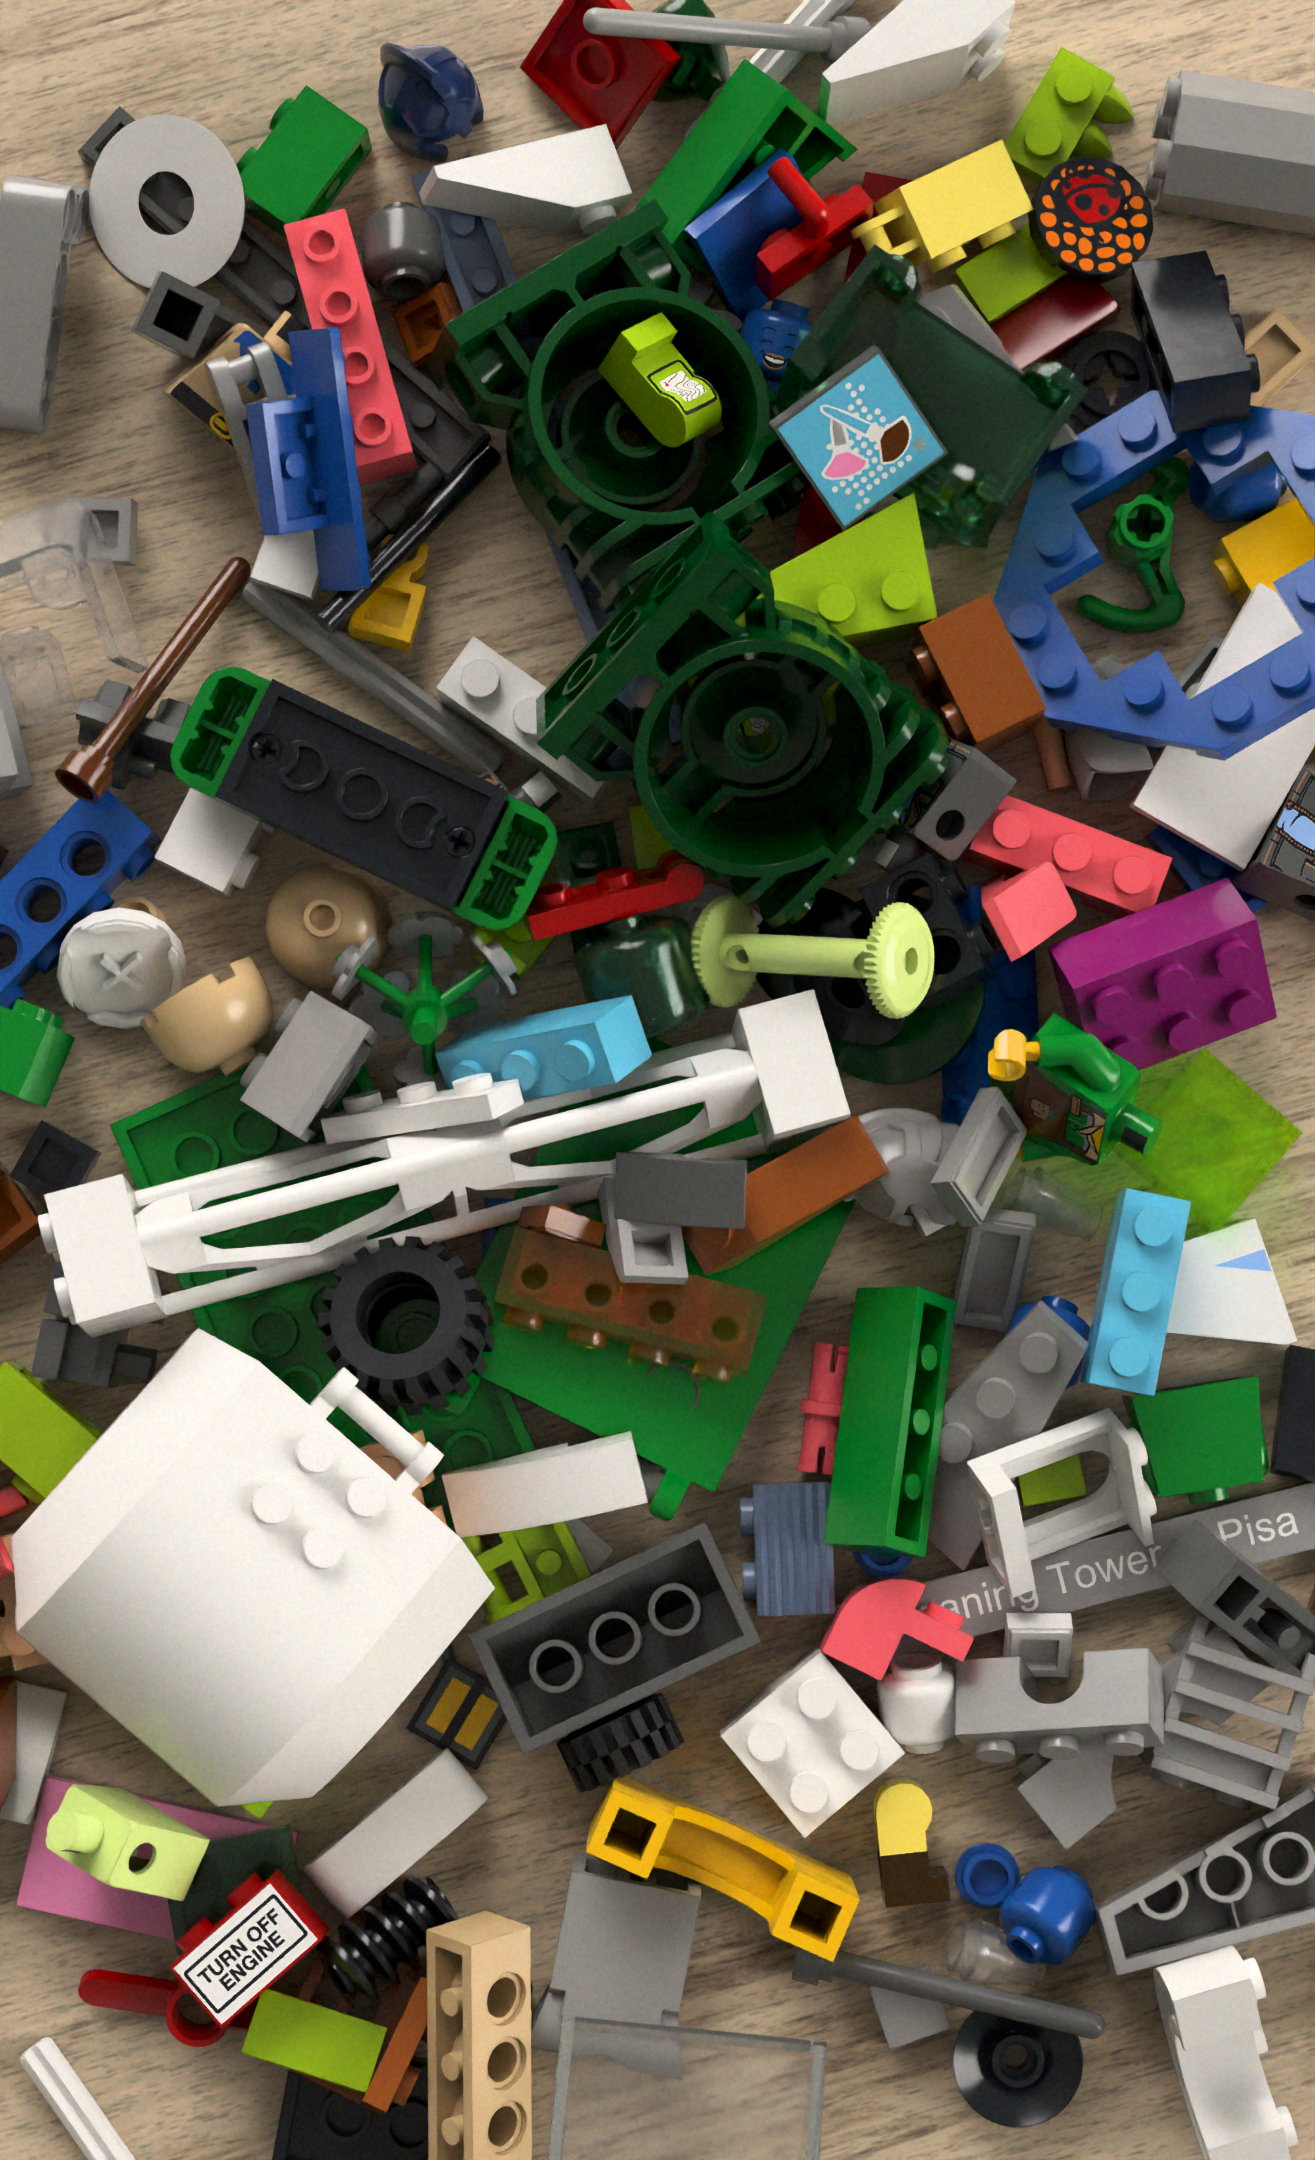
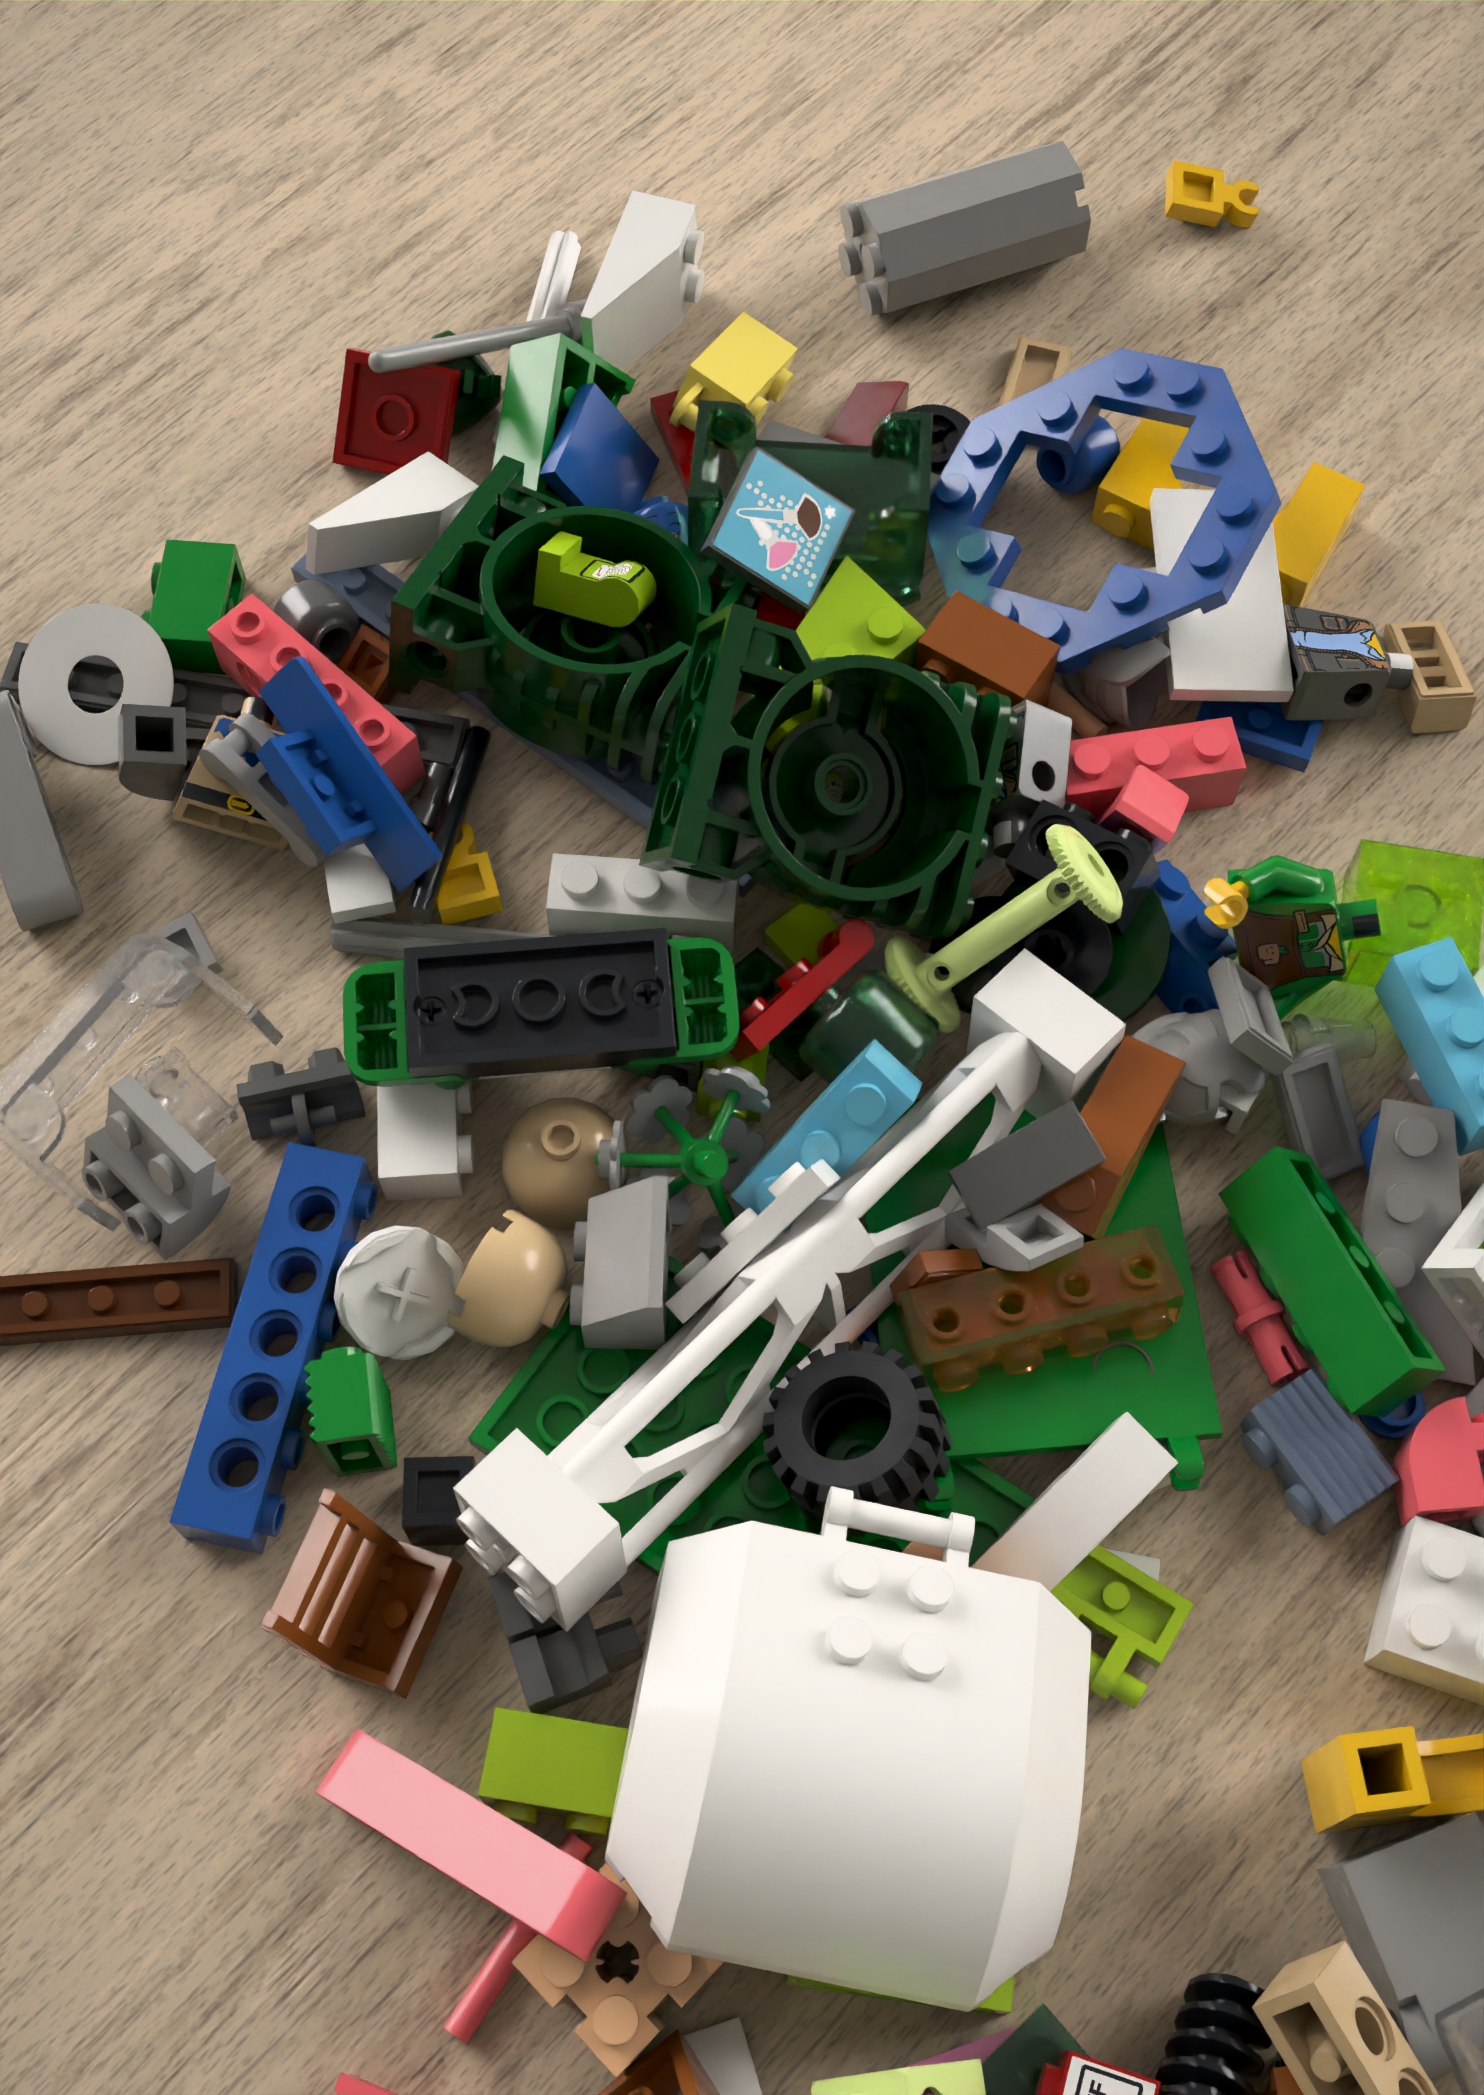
camera: 30 degrees left, 20 degrees down
(89, 770) = (279, 1127): reddish brown piece -> none
(395, 1833) = (1144, 1954): white beam -> none
(426, 98) = (265, 503): dark blue helmet -> none
(459, 1712) = (1127, 1798): piece -> none
(614, 1638) = (1224, 1623): dark grey slope -> none
(620, 1742) = (1295, 1719): black tyre -> none
(822, 235) = (647, 441): red plate -> none
(1006, 276) = (817, 393): lime tile -> none
(1061, 117) = (777, 296): lime plate -> none
(1090, 219) = (844, 341): tile -> none
(1136, 540) = (1038, 525): green piece -> none
(1167, 976) = (1295, 794): magenta brick -> none
(1193, 341) = (981, 366): black brick -> none

